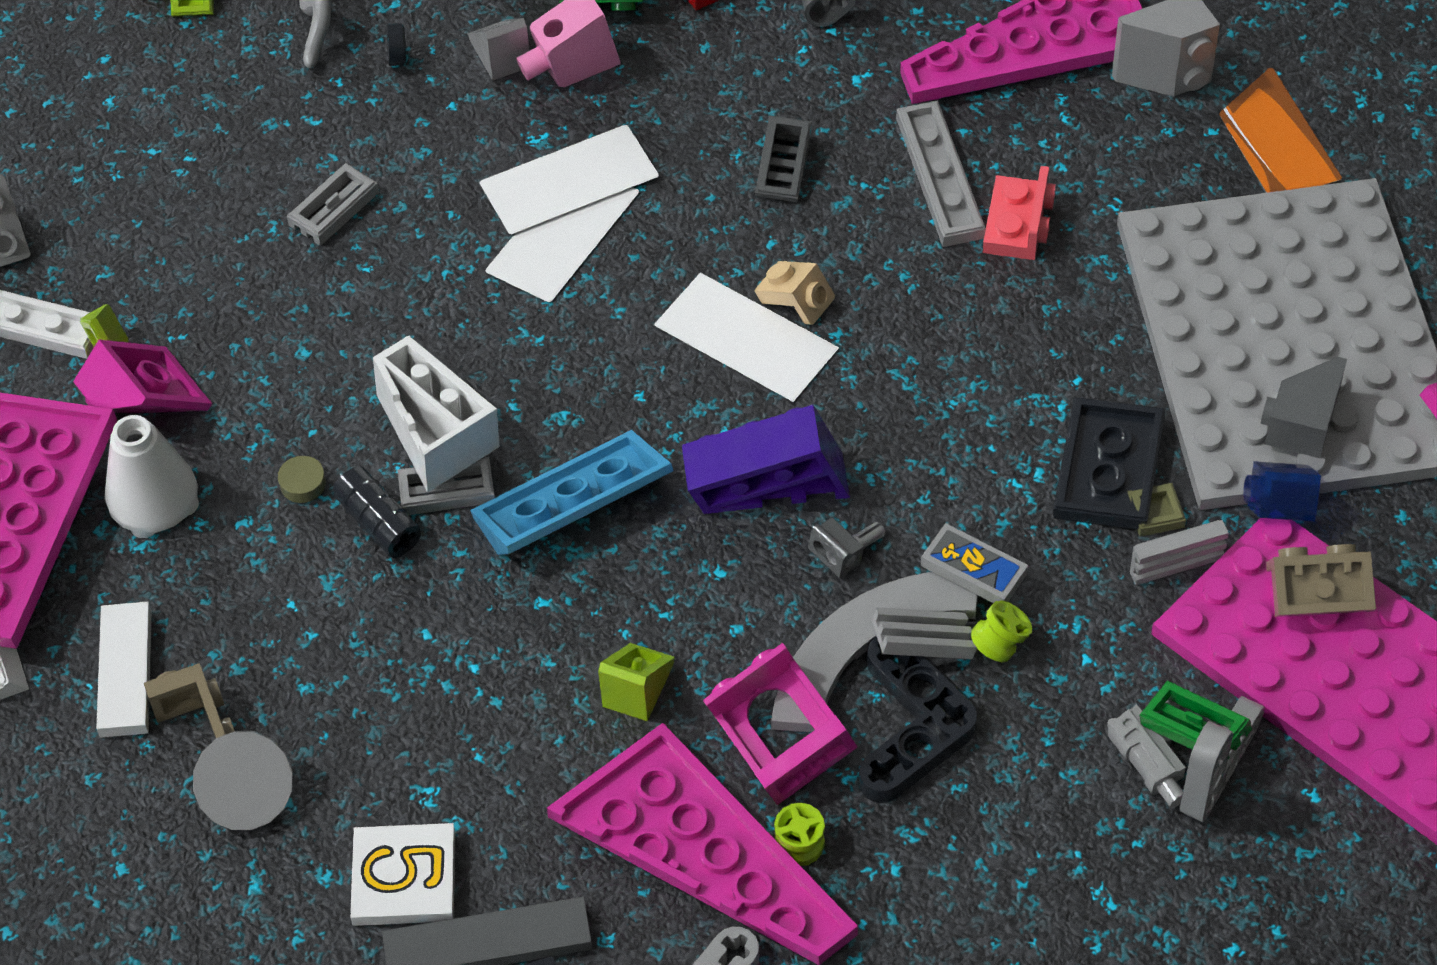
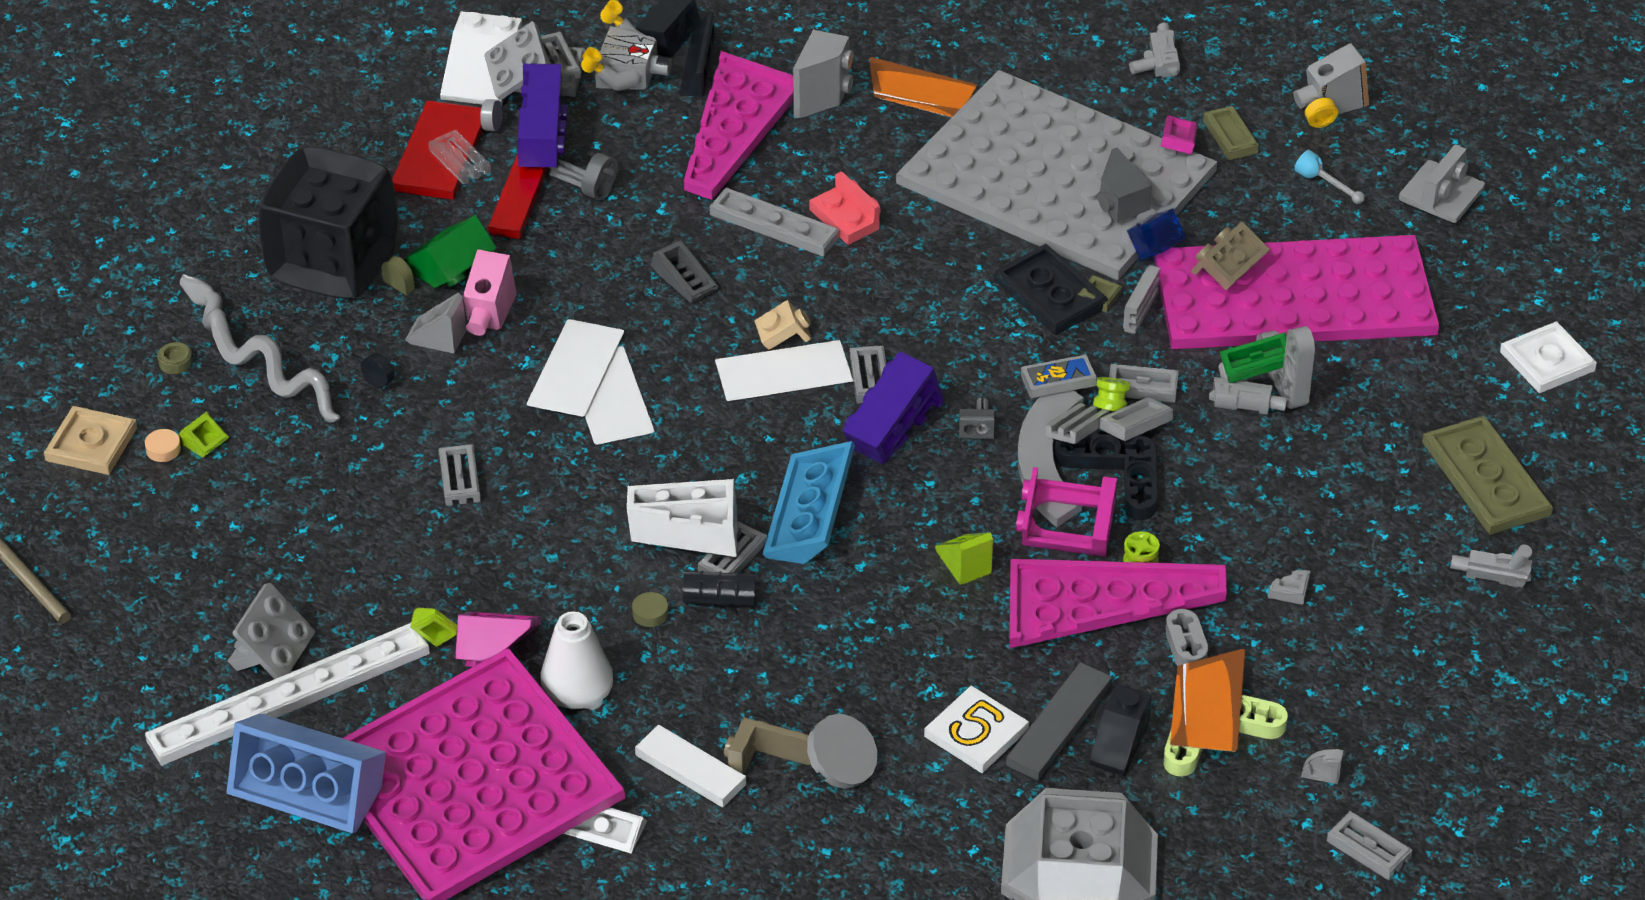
camera: 50 degrees left, 10 degrees down
(838, 404) = (866, 352): none -> light grey tile
(993, 681) = (1136, 419): none -> light grey tile
(1054, 661) = (1147, 382): none -> light grey tile

